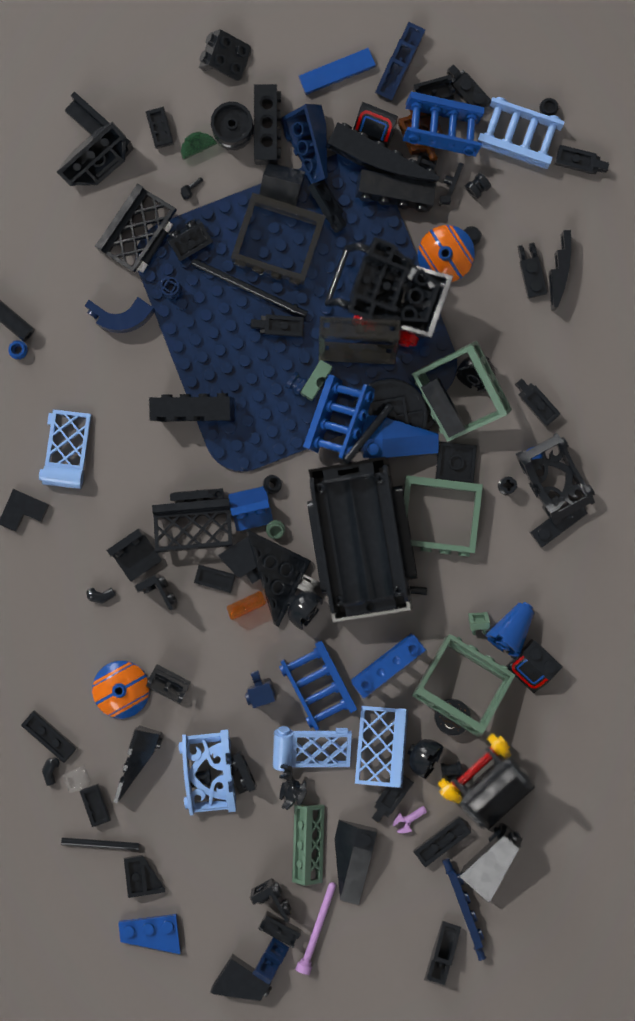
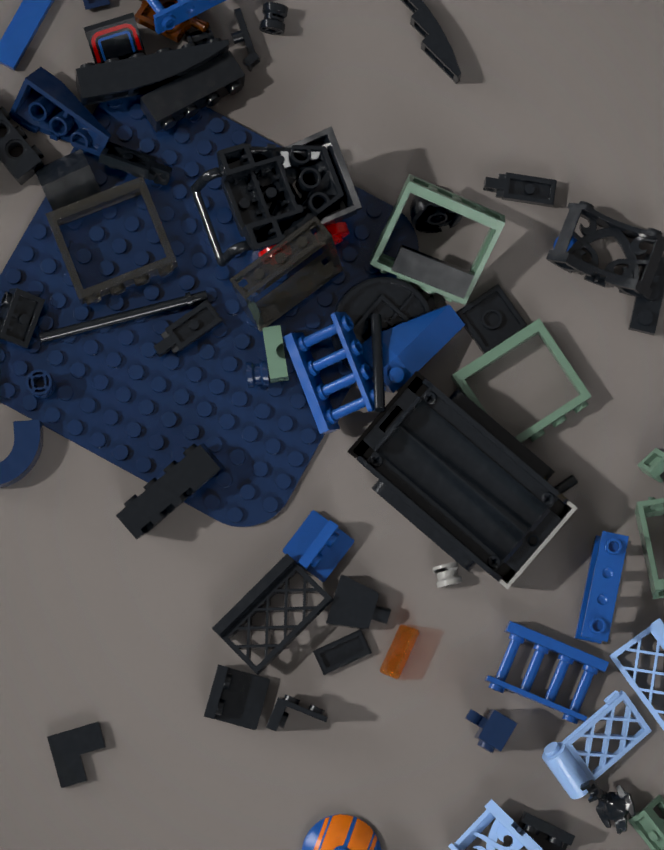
camera: 45 degrees left, 5 degrees down
(65, 474) = (87, 676): light blue piece -> none
(98, 597) = (235, 775): black arm -> none
(168, 684) = (387, 804): black hinge -> none
(197, 495) = (251, 578): black hinge -> none
(275, 480) = (321, 495): black plate -> none
(275, 529) = (362, 546): sand green plate -> none
(278, 571) = (405, 587): black tile -> none
(303, 608) = (462, 603): black cylinder -> none
(448, 238) = (295, 93): orange dish -> none
(474, 233) = (310, 74): black plate -> none
(510, 481) = (562, 292): black bush -> none
(532, 272) = (403, 61): black hinge -> none

